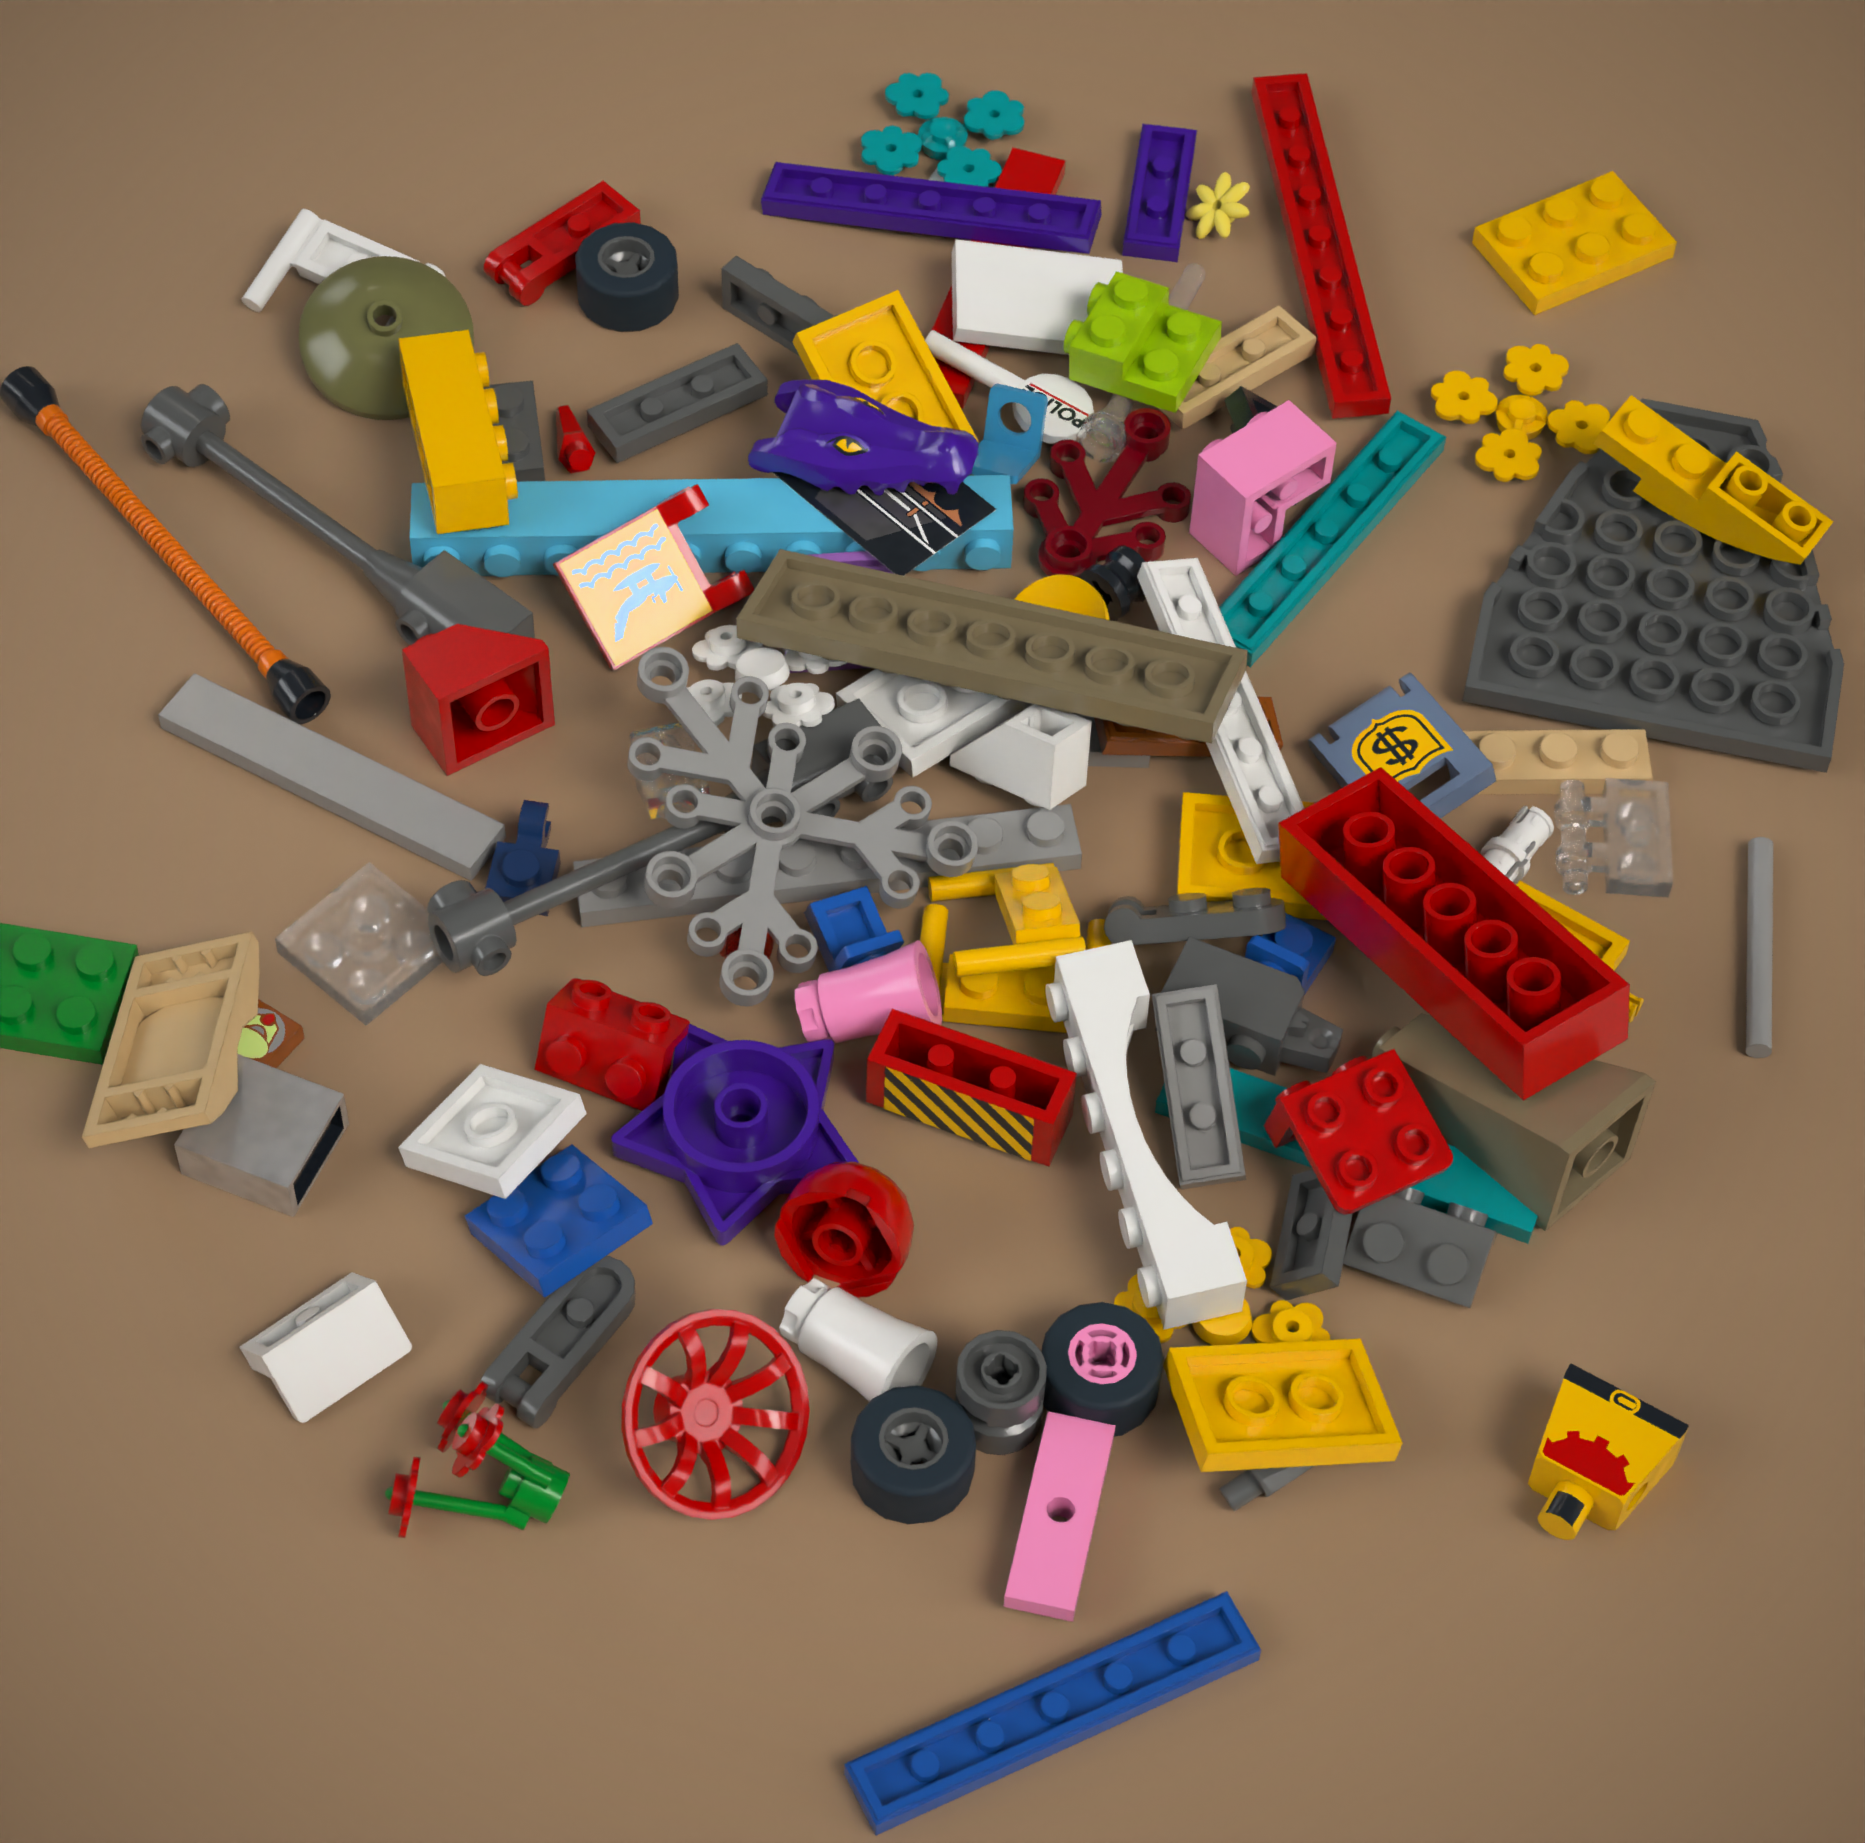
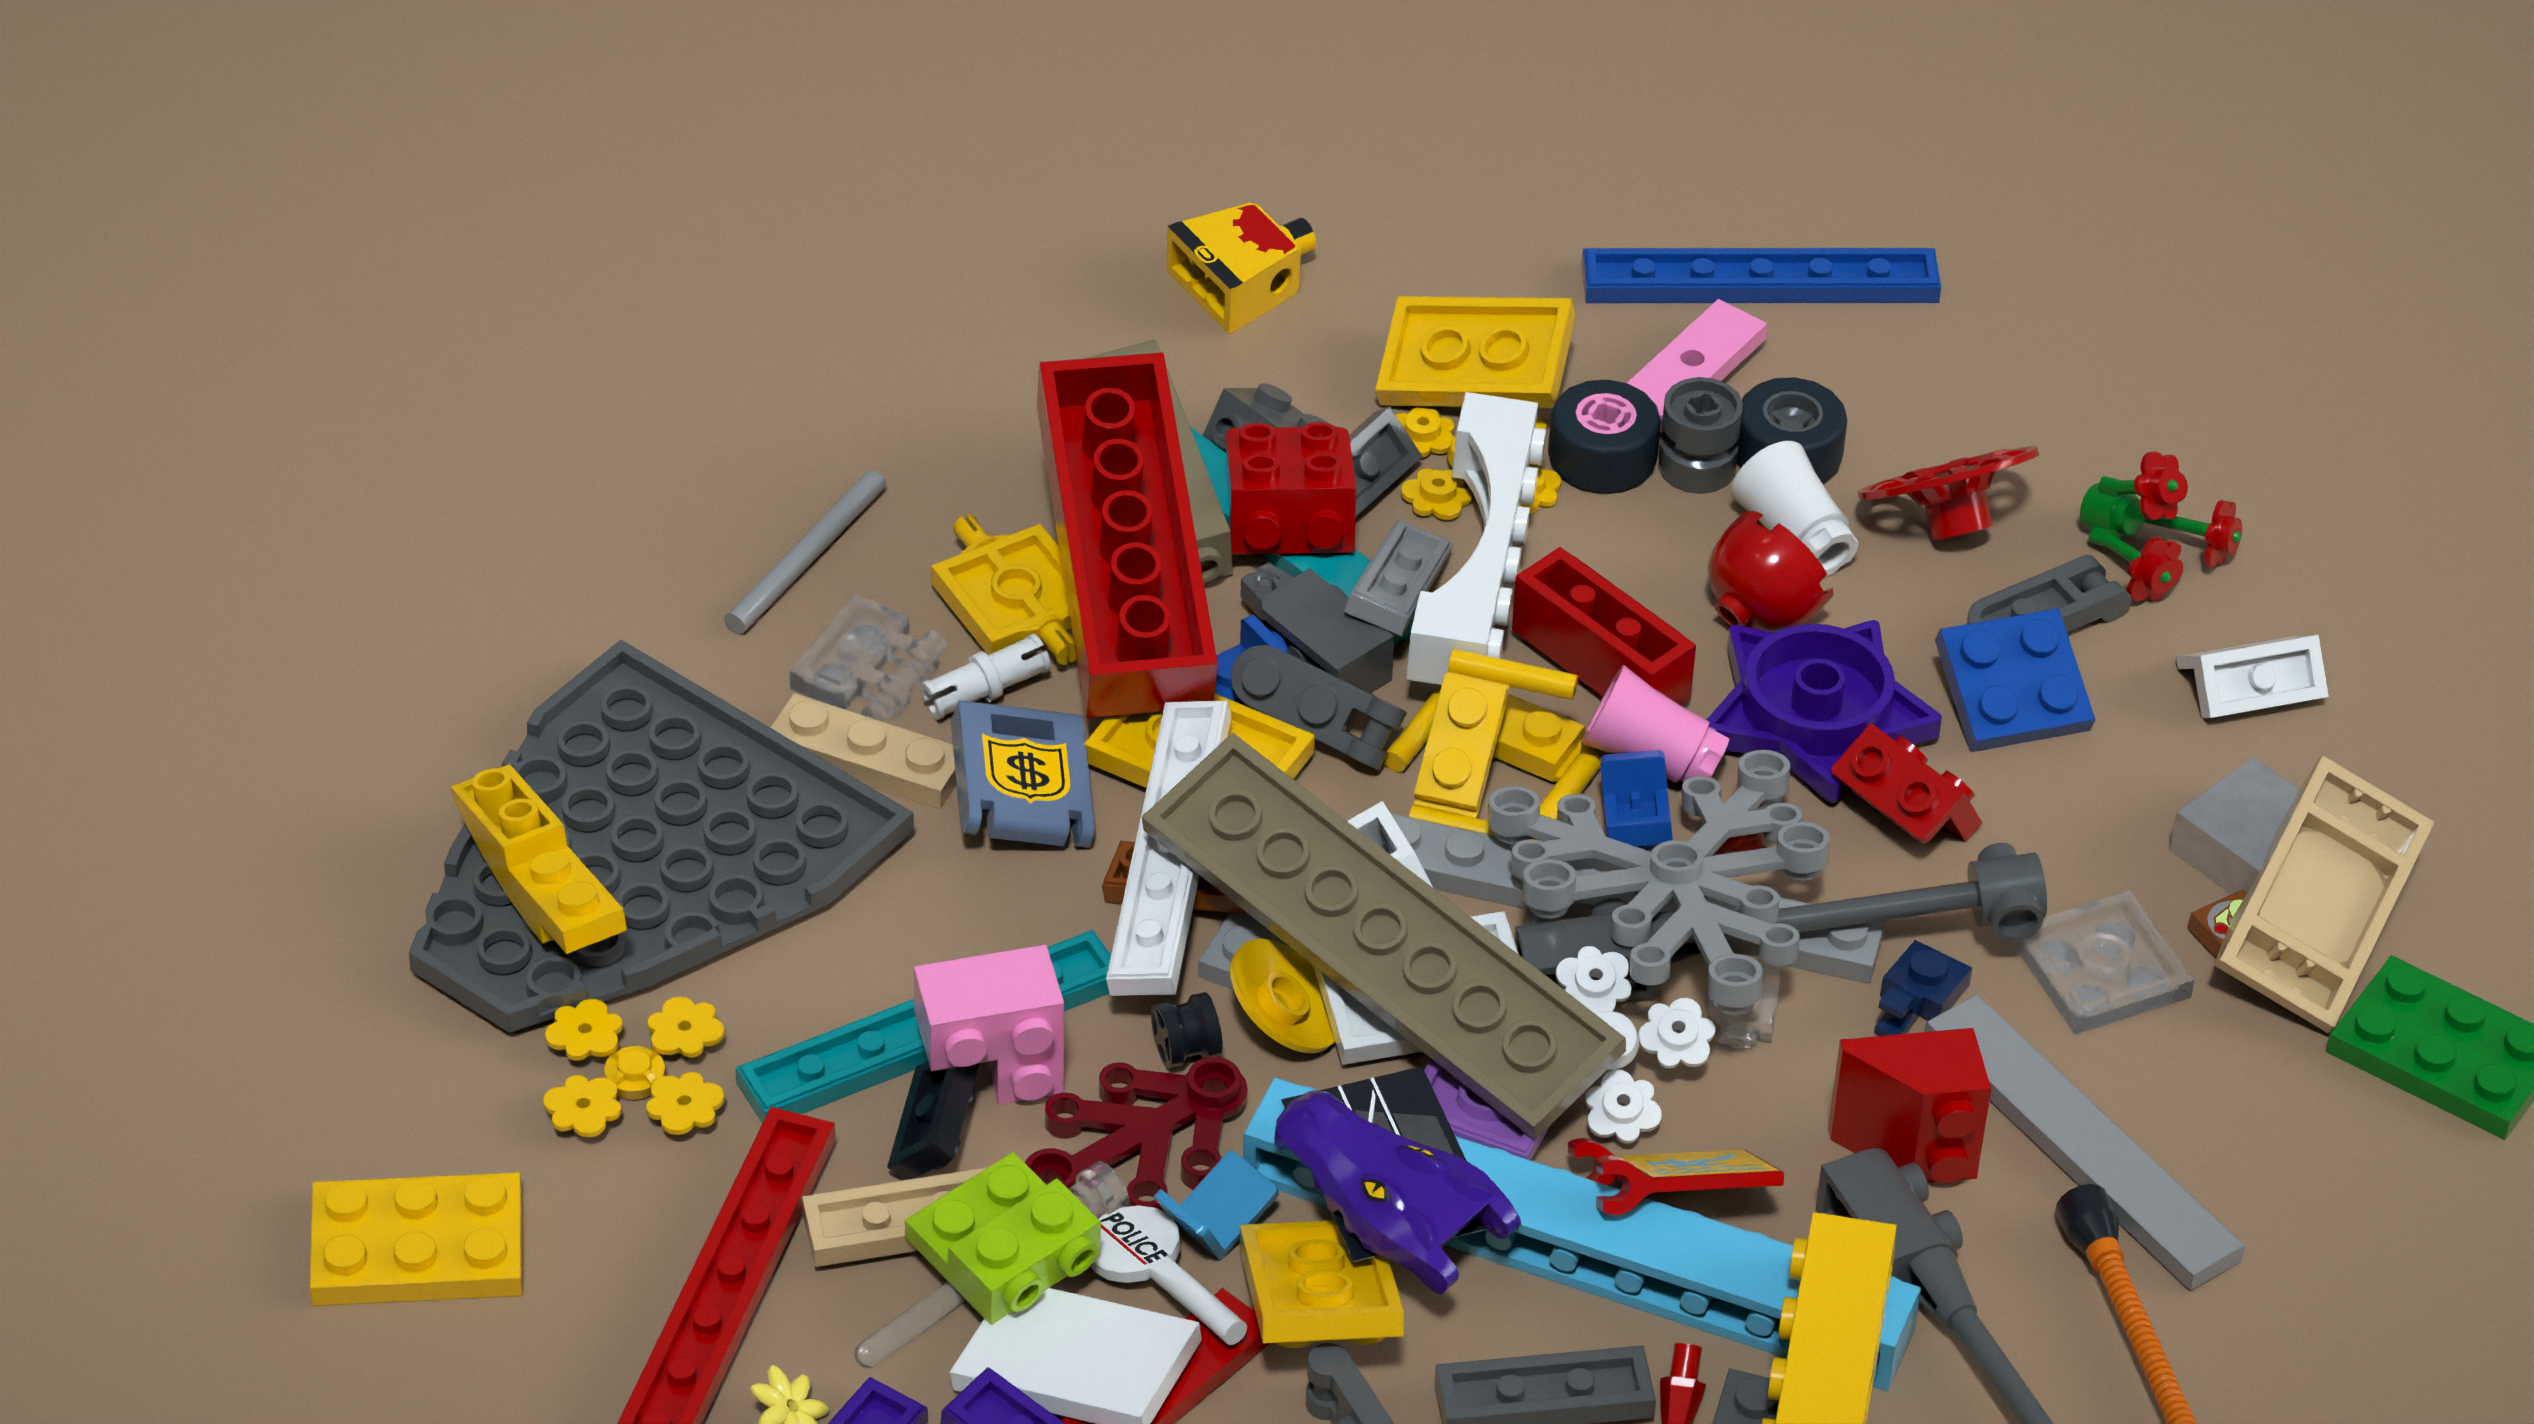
camera: 155 degrees left, 10 degrees down
(492, 1131) = (2048, 750): white plate -> none

